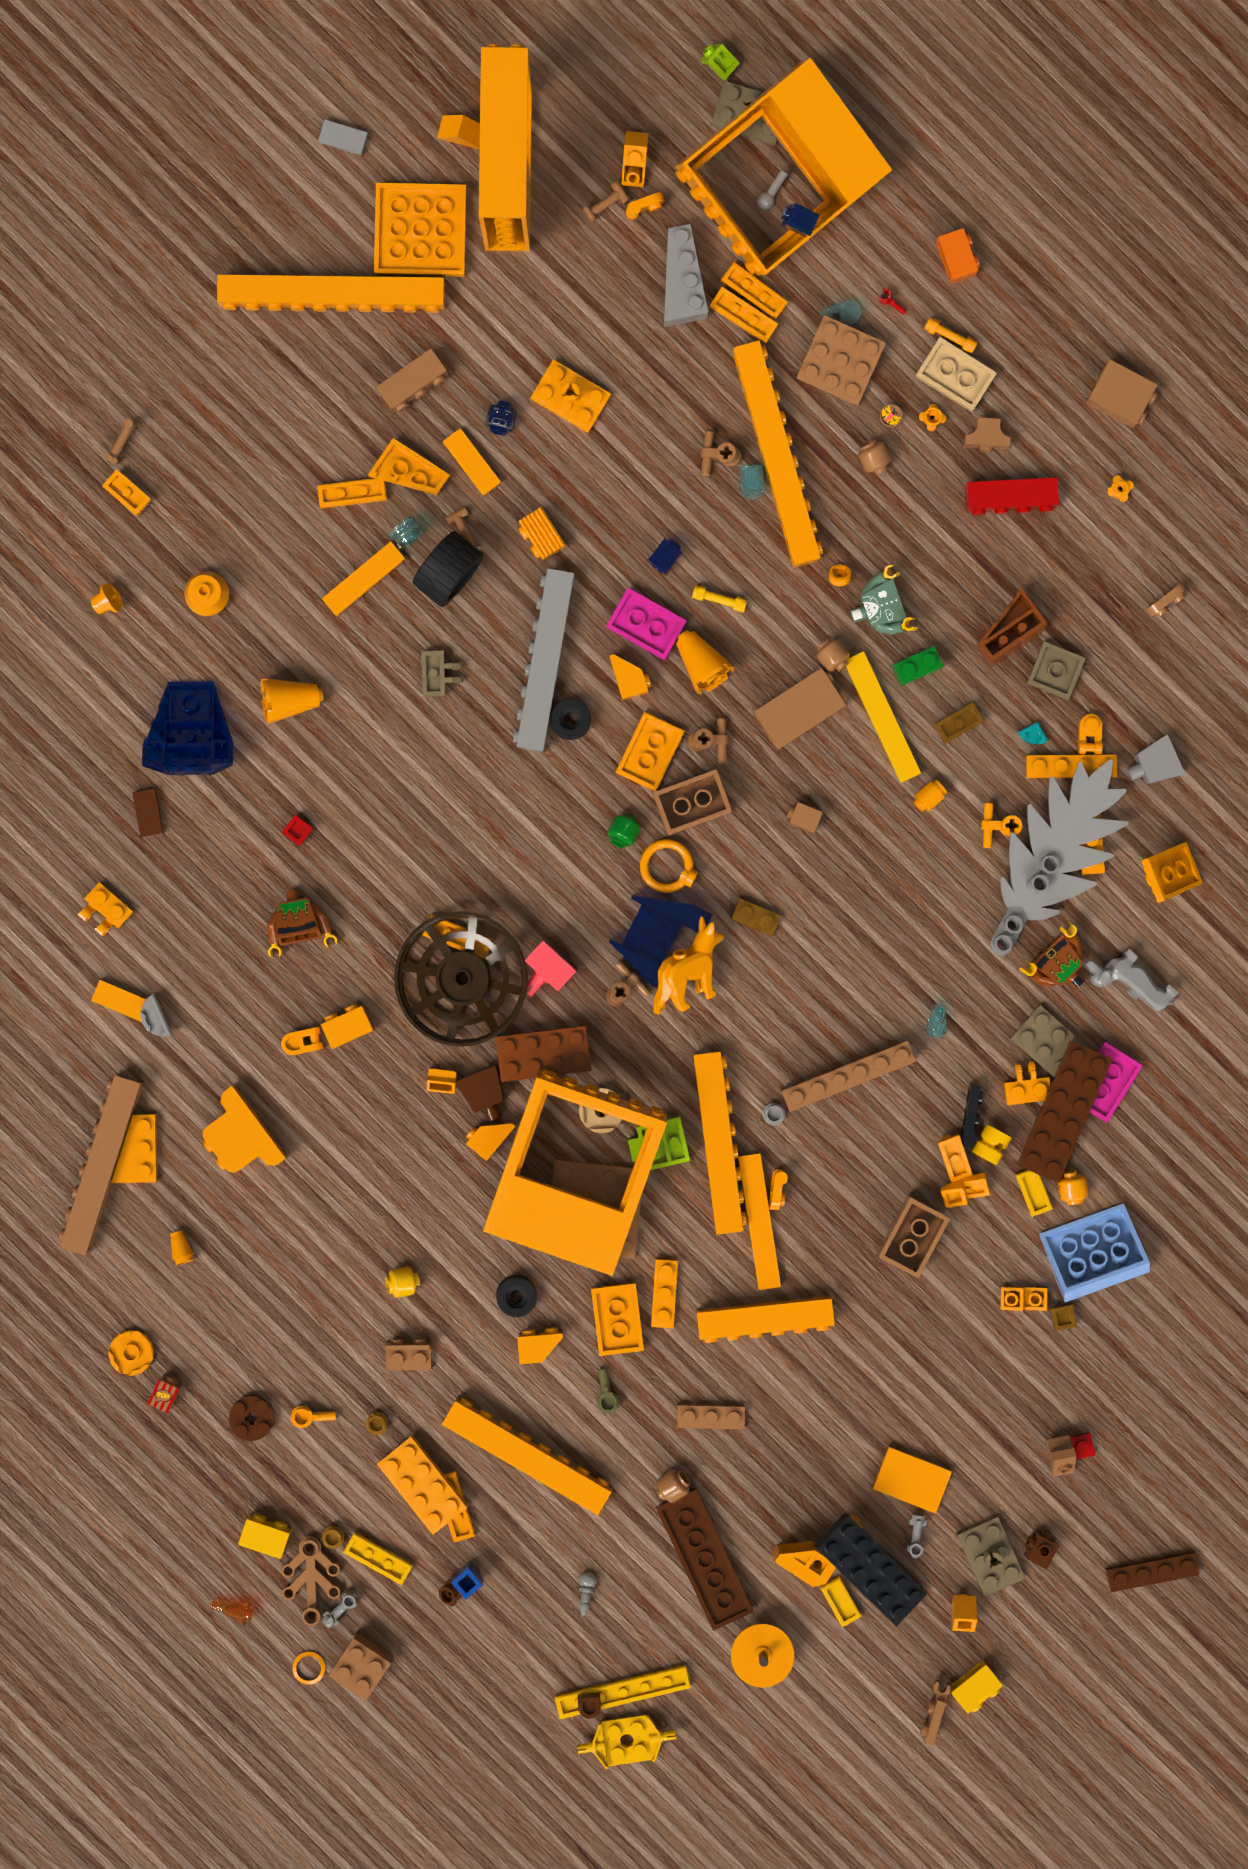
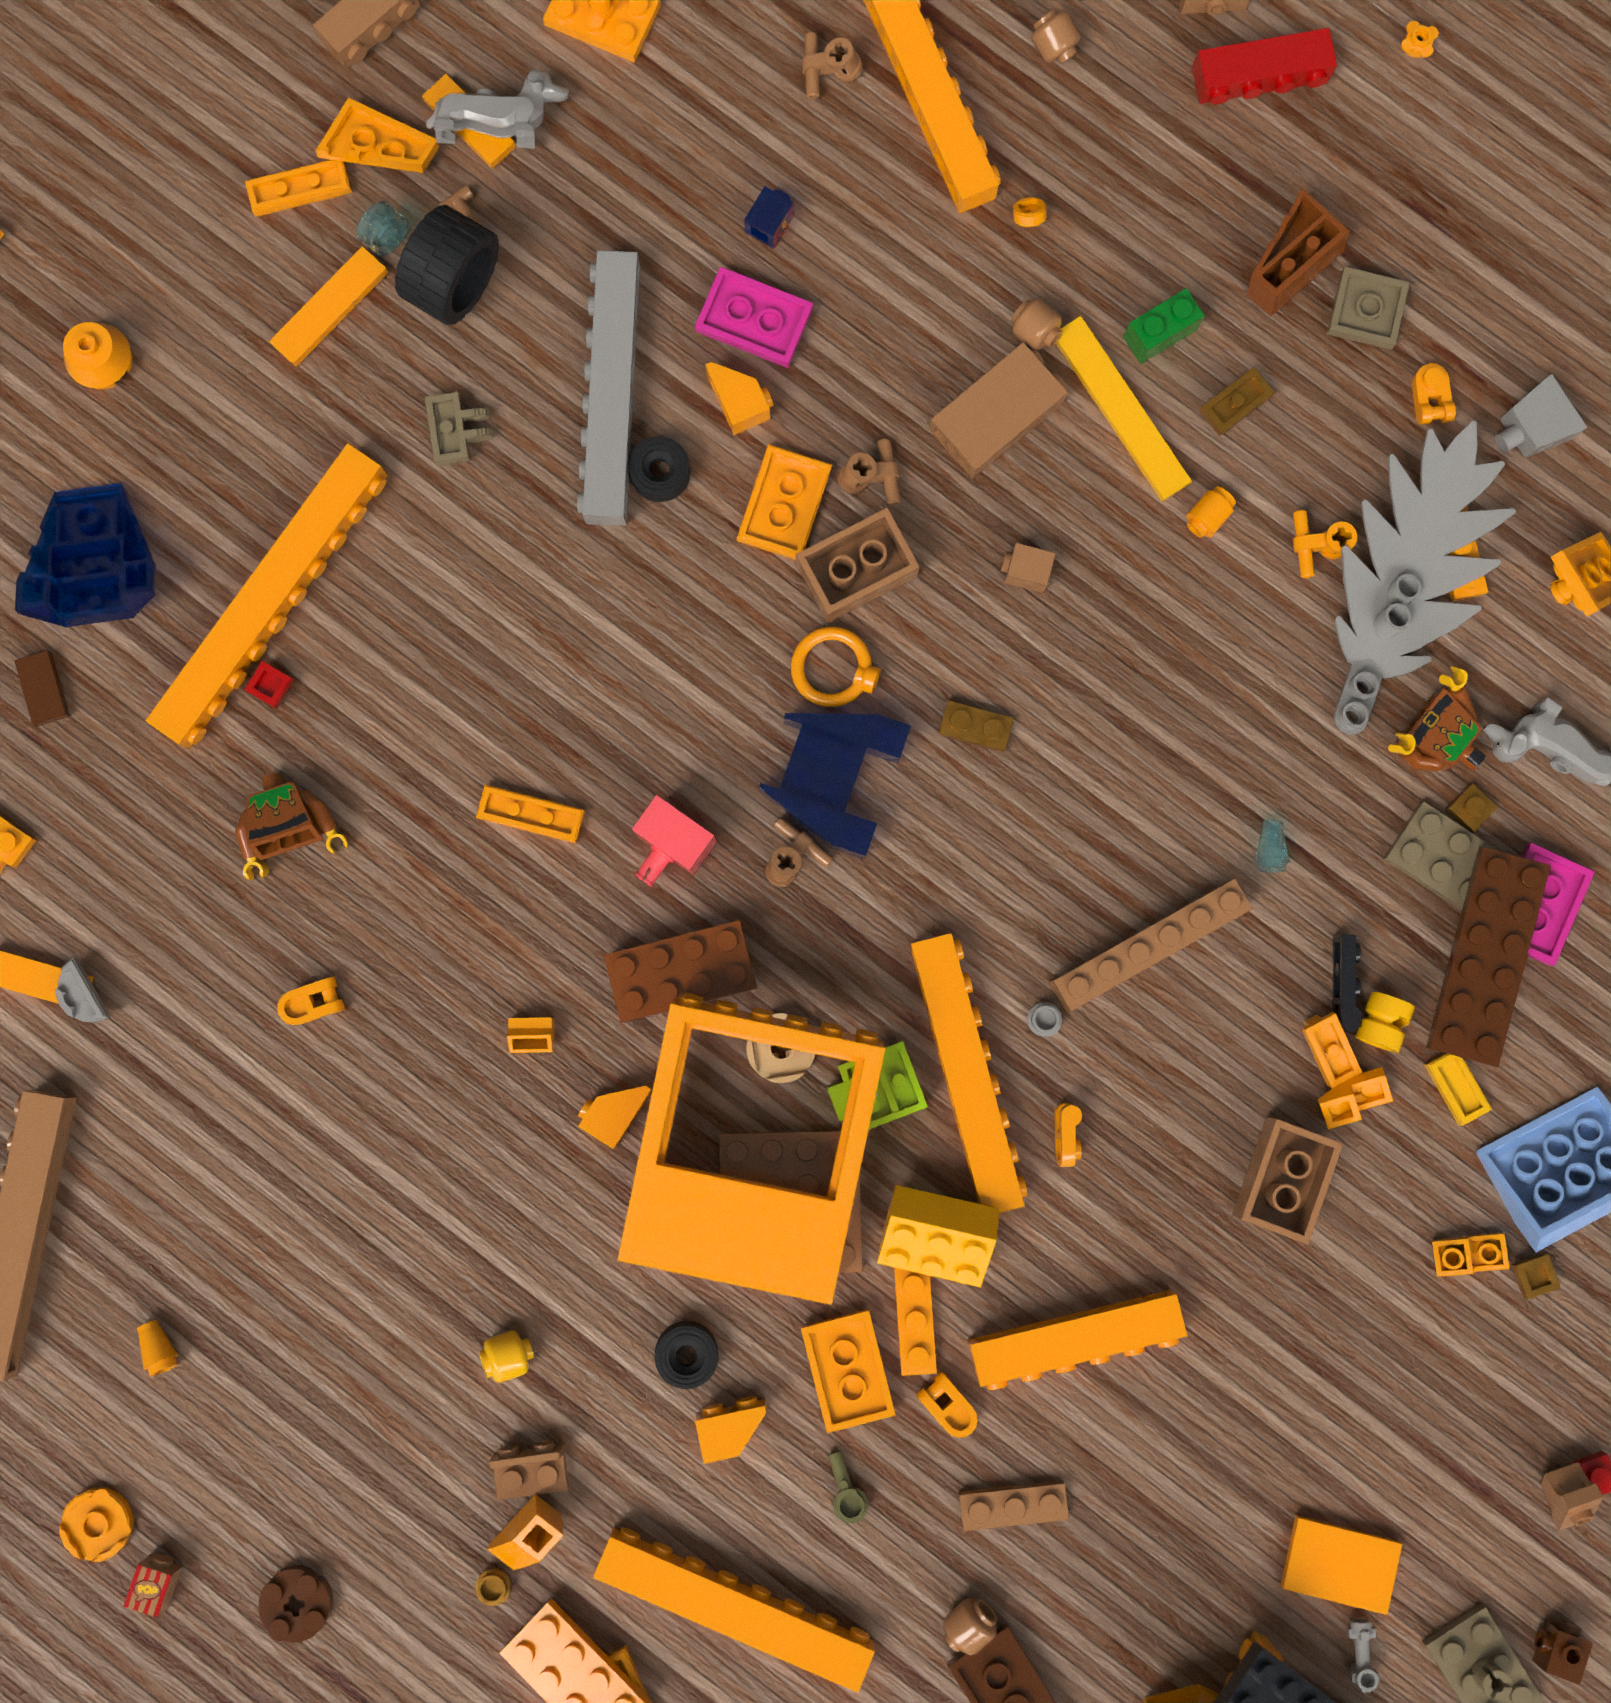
camera: 10 degrees left, 5 degrees down
(139, 1151) = (78, 1206): light orange wing -> none
(240, 1135) = (230, 1159): light orange brick -> none
(288, 698) = (233, 489): light orange cone -> none
(303, 772) = (268, 597): none -> light orange brick
(303, 1416) = (375, 1590): light orange plate -> none
(347, 1026) = (376, 970): light orange brick -> none
(403, 1394) = (528, 1535): none -> light orange slope
(448, 983) = (521, 868): dark brown dish -> none
(483, 1091) = (596, 1042): reddish brown torso -> none
(493, 465) = (497, 114): none -> light grey animal
(501, 418) = (503, 52): clear blue head -> none
(541, 534) = (583, 208): light orange brick -> none
(623, 830) = (760, 622): green head -> none
(681, 1357) = (957, 1415): none -> light orange plate
(685, 1242) = (938, 1236): none -> yellow brick
(688, 964) = (883, 804): light orange animal -> none
(701, 593) = (828, 264): yellow bar -> none
(703, 663) = (846, 359): light orange cone -> none
(751, 481) = (881, 94): clear light blue brick -> none
(759, 1221) = (1046, 1189): light orange tile -> none
(882, 605) = (1099, 244): sand green torso -> none
(1026, 1090) = (1423, 933): light orange hinge -> none
(1033, 734) = (1348, 406): teal tile -> none
(1065, 765) = (1373, 448): light orange plate -> none
(1071, 1013) = (1471, 808): none -> pearl gold plate
(1073, 1188) = (1519, 1073): light orange head -> none
(1174, 595) = (1524, 177): medium nougat plate -> none

